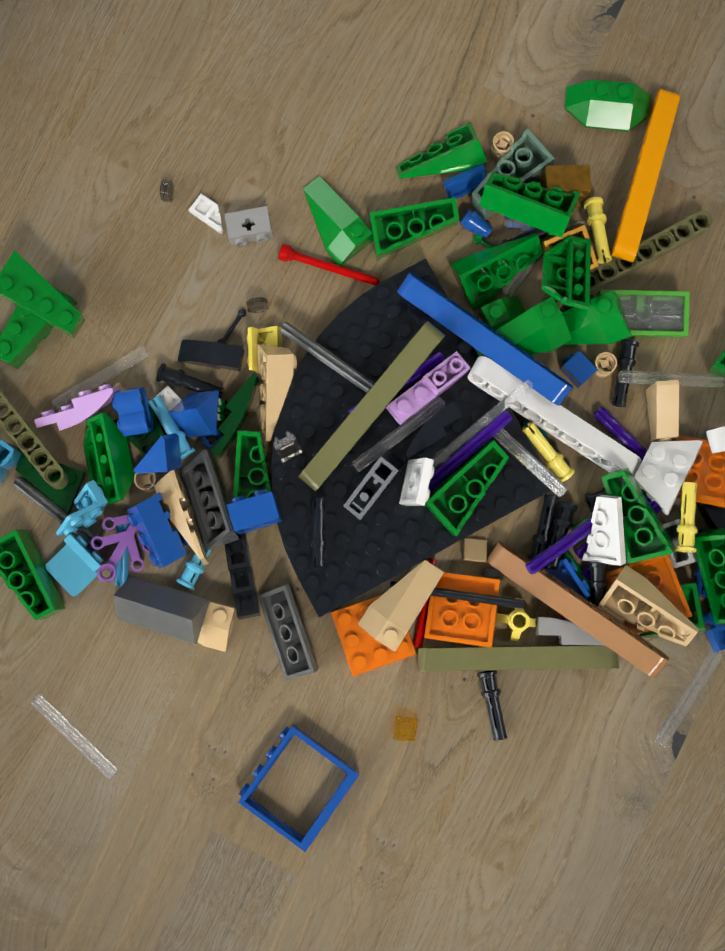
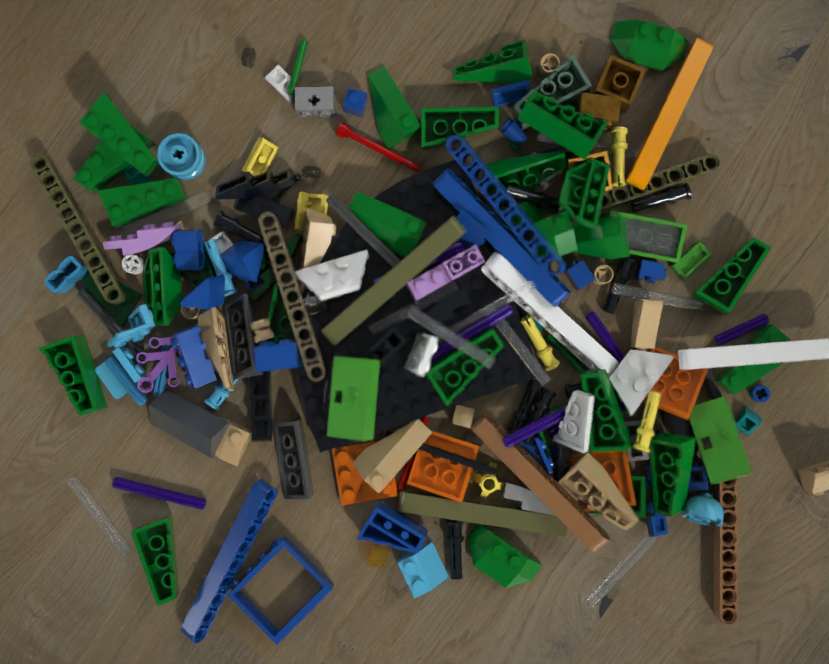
camera: 10 degrees right, 5 degrees up
(60, 341) = (135, 175): none -> teal slope
(67, 367) = (140, 200): none -> green wedge
(70, 435) = (129, 262): none -> white wheel
(83, 573) = (126, 381): none -> dark azure axle
(97, 307) = (183, 146): none -> medium azure wheel
(139, 697) = (159, 493): none -> dark purple axle
(149, 768) = (158, 556): none -> green wedge
(190, 331) = (250, 186): none -> black slope
(196, 299) = (260, 157): none -> light yellow slope
(223, 192) = (297, 66): none -> green bar
(231, 487) = (263, 335): none -> tan wheel
(233, 763) = (229, 561): none -> blue beam
(252, 435) = (286, 289): none -> dark tan beam
(294, 220) = (355, 102): none -> blue brick
(304, 412) = (335, 276): none -> white wing
(348, 545) = (353, 398): none -> bright green brick
(359, 346) = (393, 227): none -> green wedge
(417, 693) = (392, 529): none -> blue wedge
(447, 456) = (451, 337): none -> clear axle
(454, 337) = (475, 231): none -> blue piece
(460, 735) = (423, 570): none -> medium azure slope
(474, 294) = (496, 201): none -> blue beam
(517, 291) = (539, 199): none -> black pin
(547, 707) = (500, 558): none -> green wedge
(584, 147) = (619, 80): none -> pearl gold brick
(585, 464) = (565, 352): none -> green bar
(657, 351) = (650, 271): none -> blue brick
(663, 265) = (669, 196): none -> black pin
(700, 333) = (691, 260): none -> bright green tile

